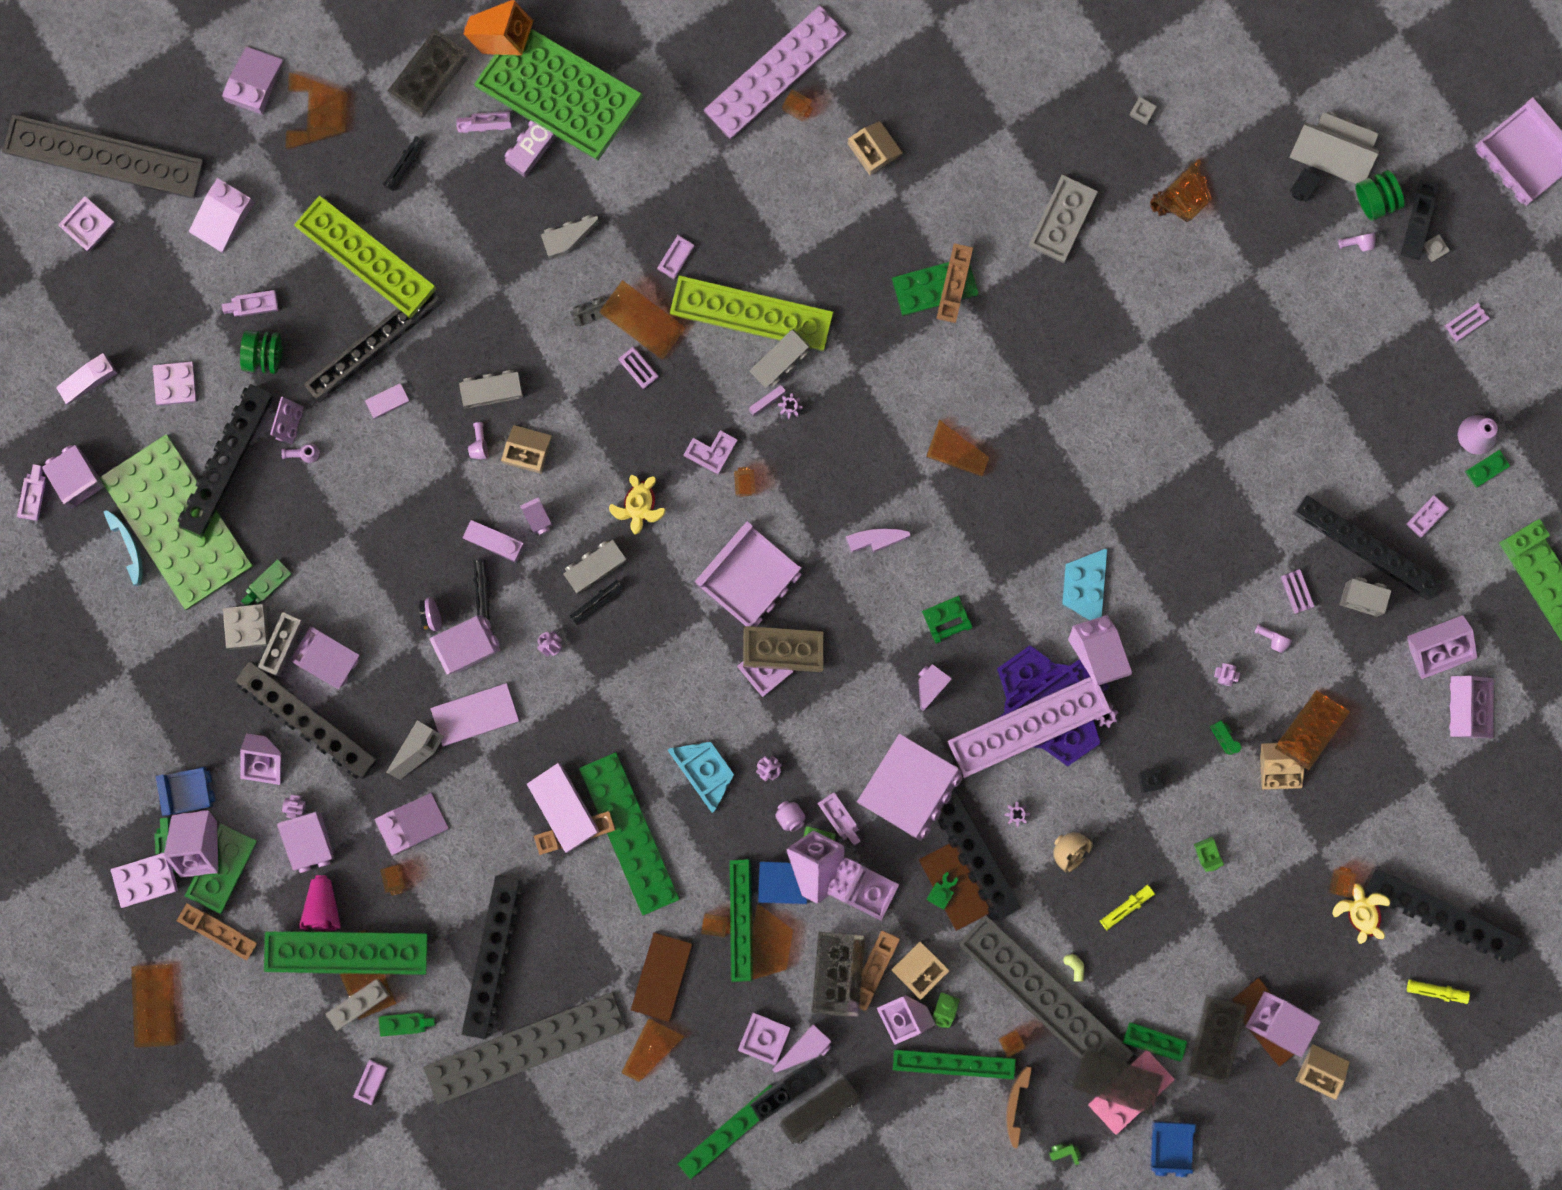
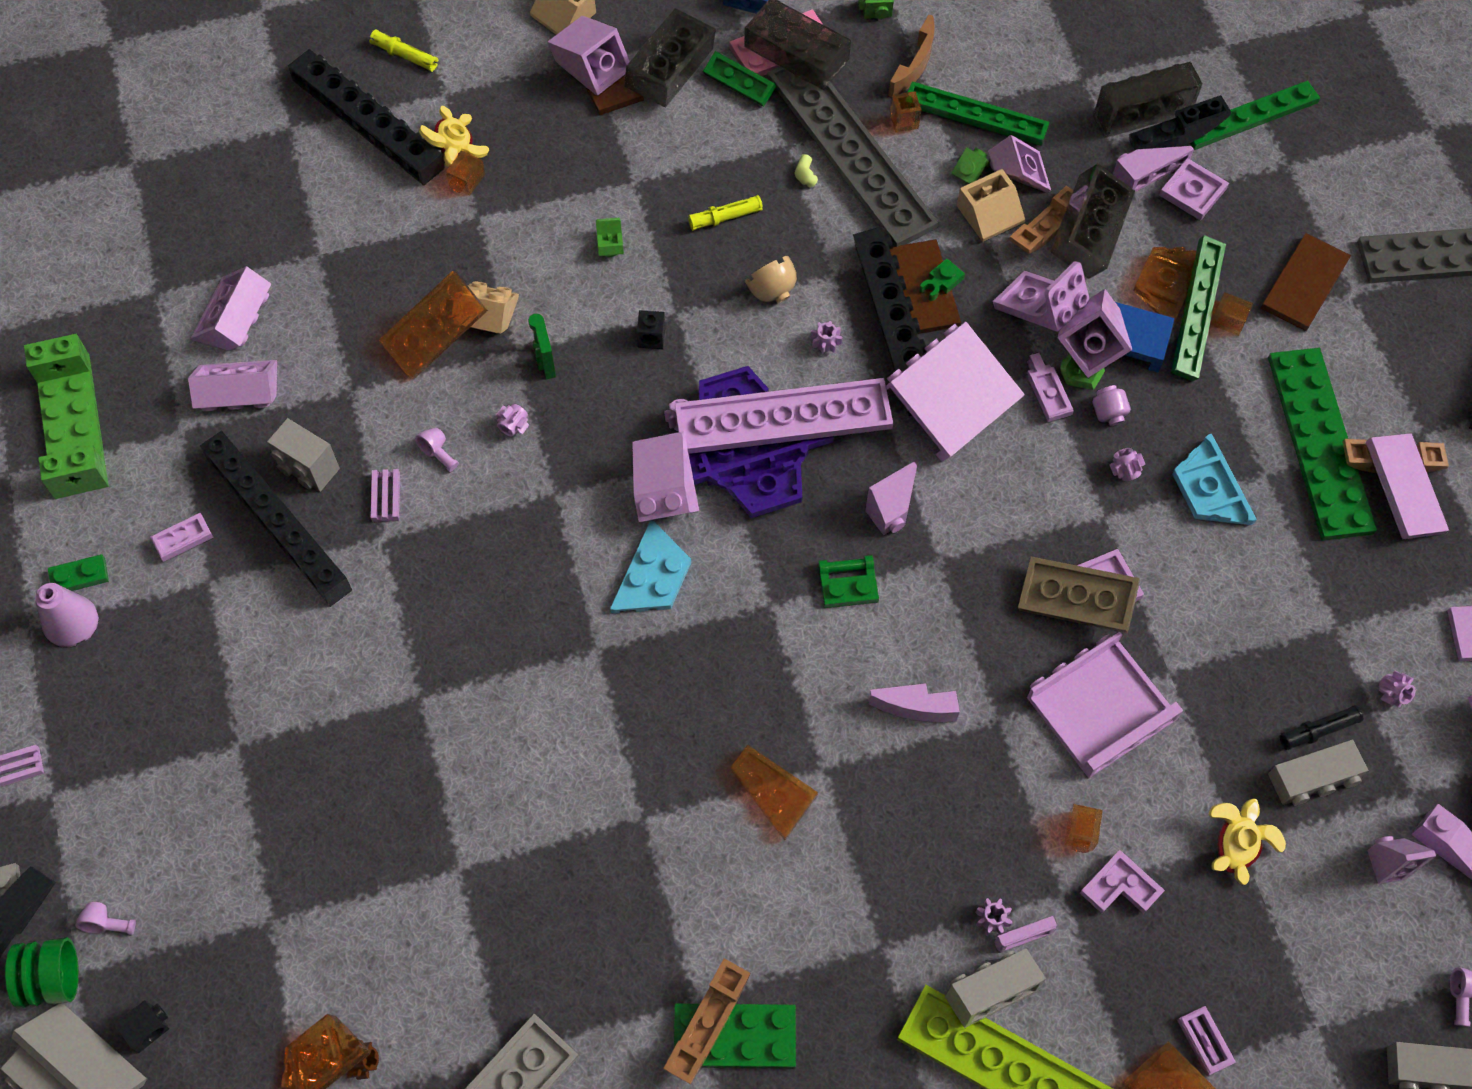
camera: 165 degrees left, 20 degrees down
(526, 449) = (1397, 962): tan slope -> none
(651, 1046) = (1333, 214): clear orange wing -> none

